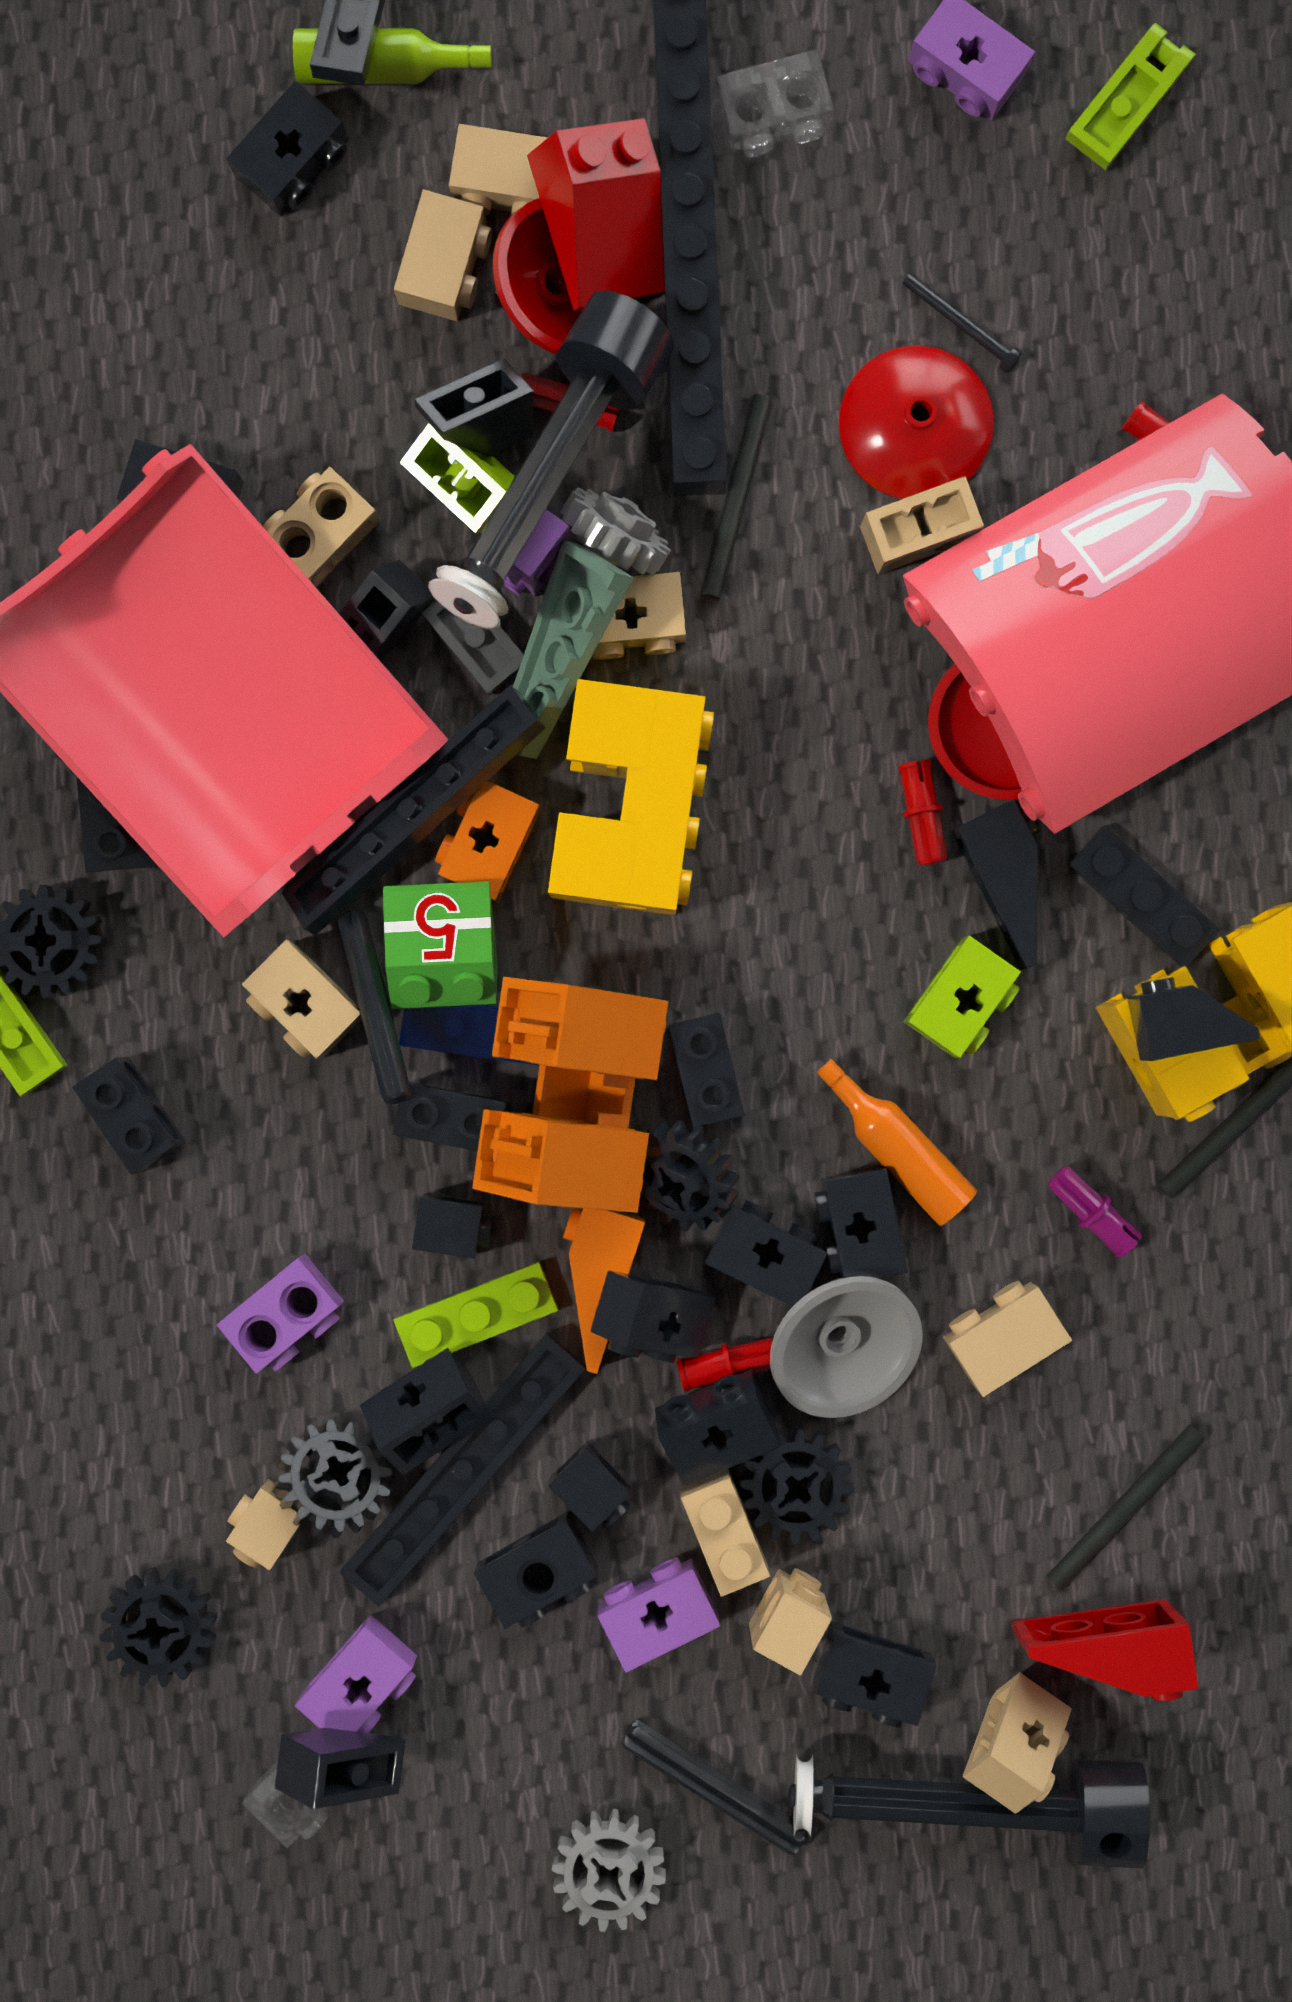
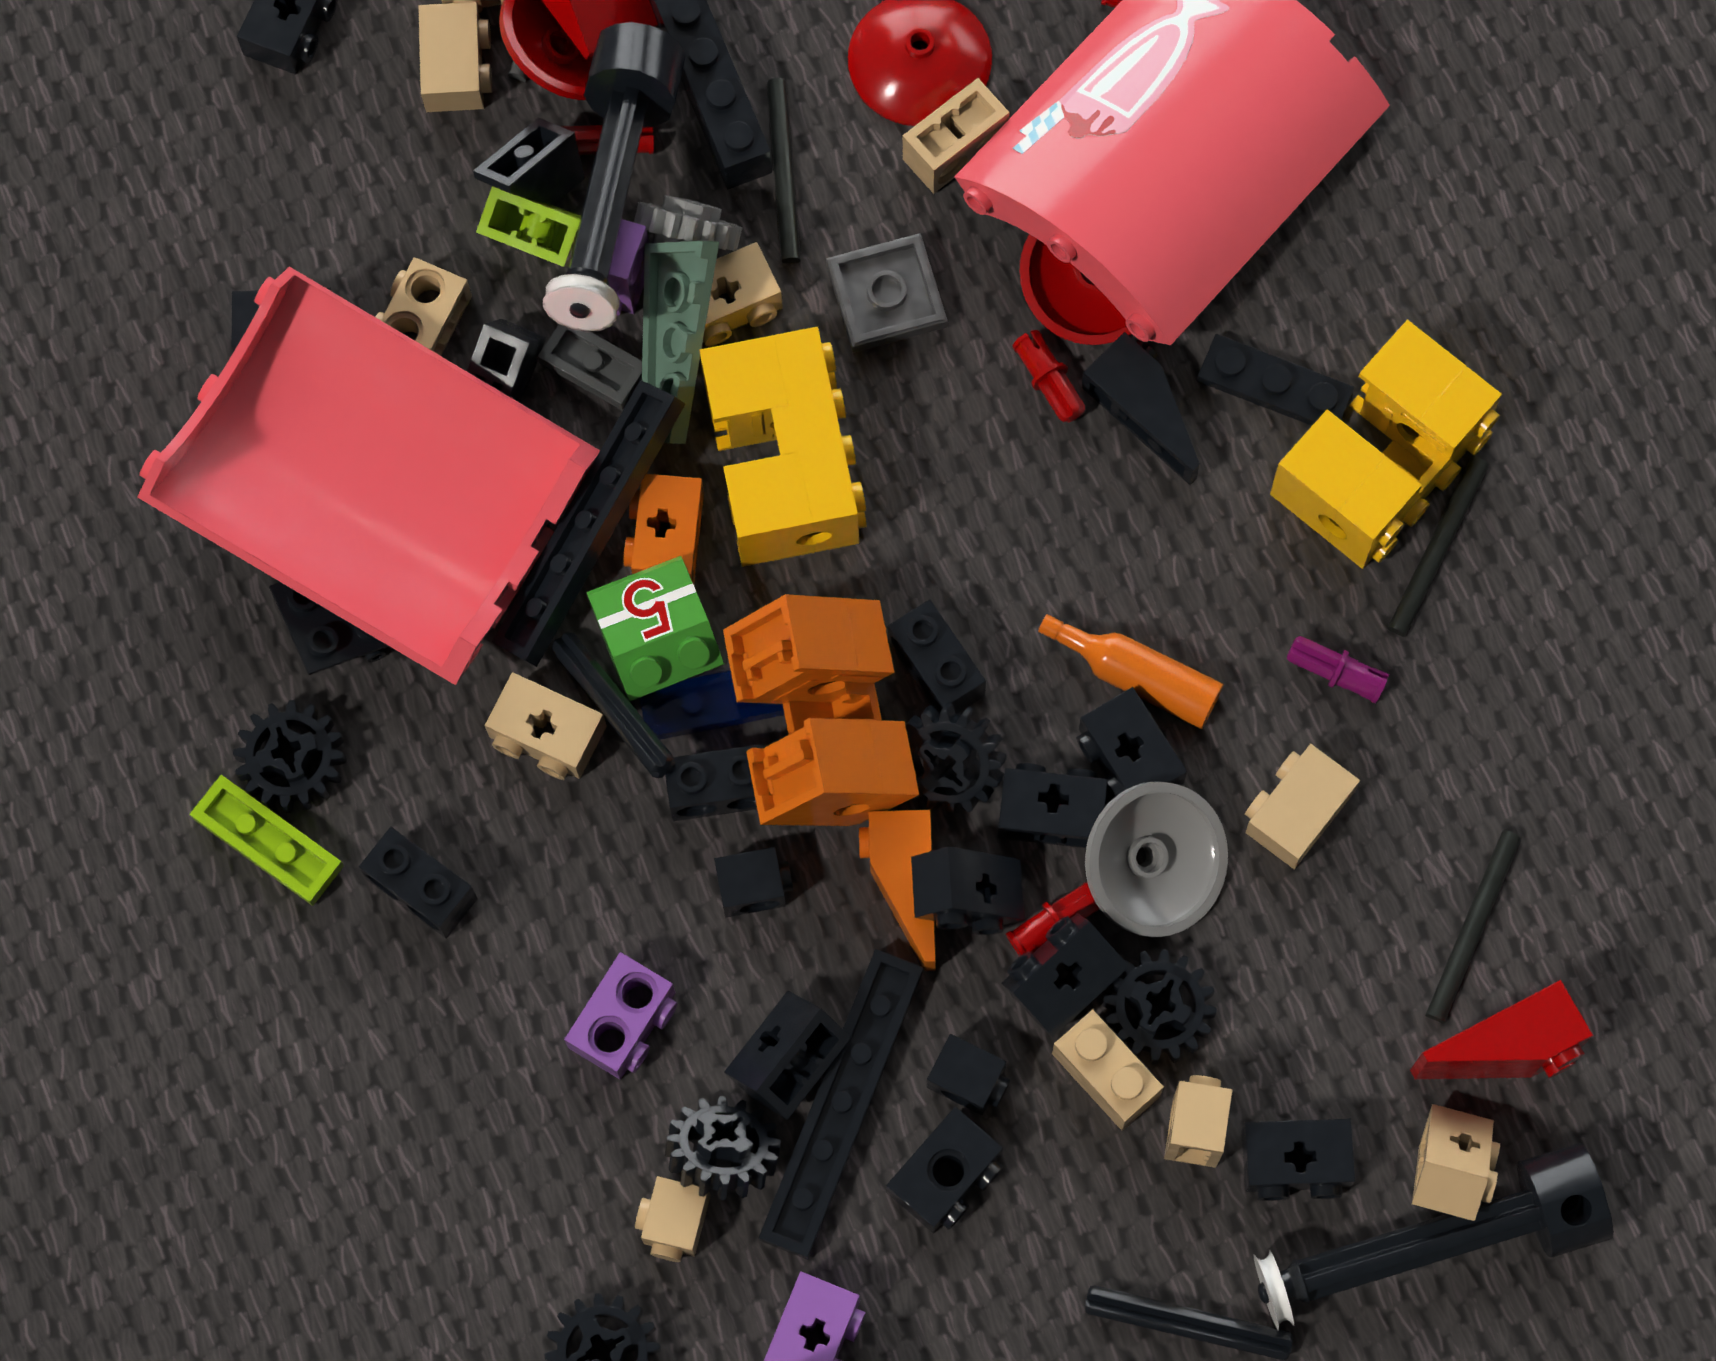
camera: 20 degrees left, 15 degrees down
(476, 1314) = (804, 956): lime plate -> none
(643, 1637) = (1064, 1200): medium lavender brick -> none
(793, 666) = (886, 292): none -> flat silver plate
(966, 968) = (1153, 493): lime brick -> none
(1183, 1021) = (1342, 449): black slope -> none

